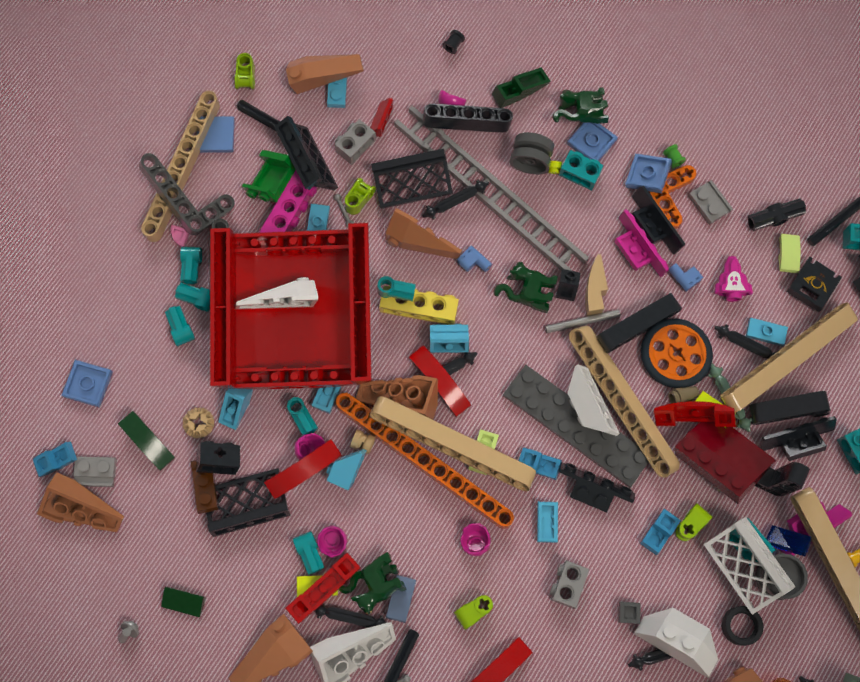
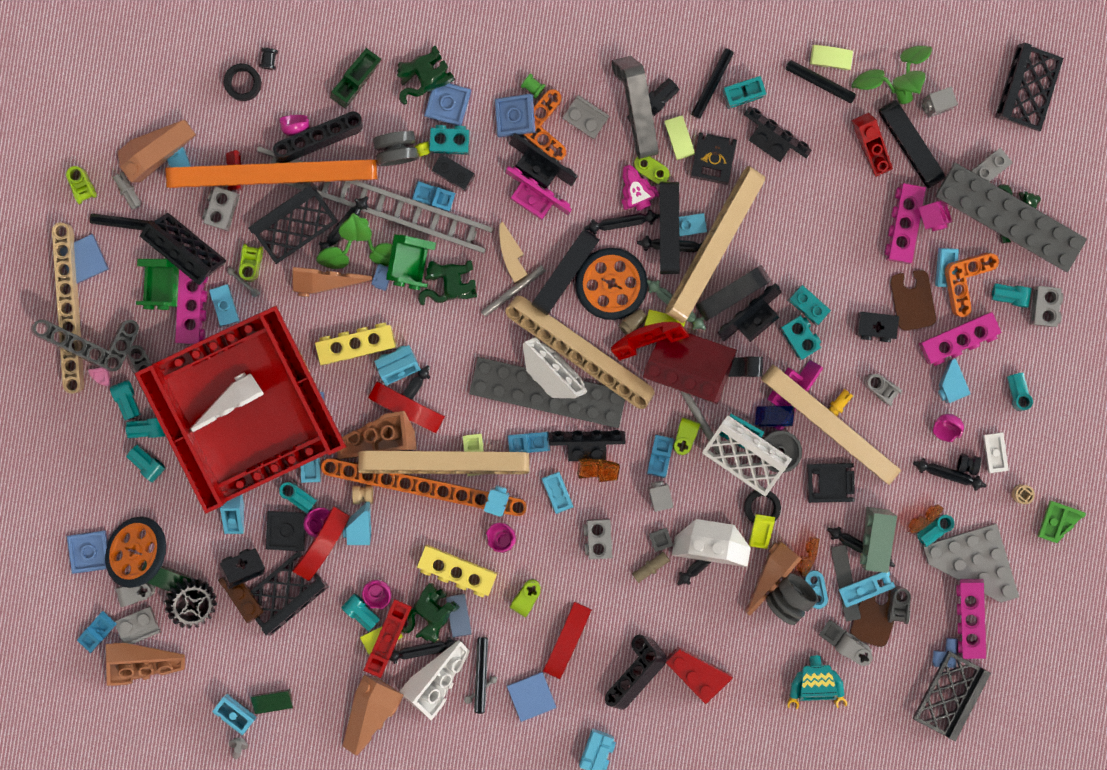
camera: 20 degrees left, 15 degrees up
(106, 438) = (129, 596): none -> light grey piece
(141, 411) = (154, 559): none -> wedge
(141, 596) = (234, 714): none -> medium azure brick
(156, 486) = (184, 607): none -> black gear
(202, 430) = (213, 535): tan gear -> none
(275, 444) = (285, 531): none -> black plate
(281, 94) = (127, 190): none -> light grey axle
(398, 289) = (330, 343): teal piece -> none
(402, 527) = (450, 561): none -> light yellow brick
(414, 127) = (271, 173): none -> orange beam
(424, 38) = (228, 79): none -> black tyre
(470, 198) = (354, 229): none -> bright green plant
(489, 499) = (497, 501): none -> medium azure brick
(501, 251) = (408, 261): none -> green panel
(546, 210) = (433, 196): none -> dark azure slope
(568, 285) = (484, 263): black bracket -> none
(573, 197) = (453, 173): none -> black brick
(599, 518) = (602, 469): none -> clear orange slope
(609, 635) = (651, 567): none -> dark tan pin
(648, 568) = (660, 496): none -> light grey brick
(685, 279) = (593, 207): medium blue piece -> none
(709, 303) = (621, 222): none -> black wheel
(712, 511) = (700, 419): none -> light grey bar
(734, 648) = (761, 531): none -> neon yellow tile
(751, 270) = (651, 170): none -> lime plate
(752, 324) = (669, 228): none -> black beam
(767, 207) = (633, 76): none -> beam
(820, 633) = (833, 482): none -> black container
(833, 478) = (796, 340): none -> teal brick

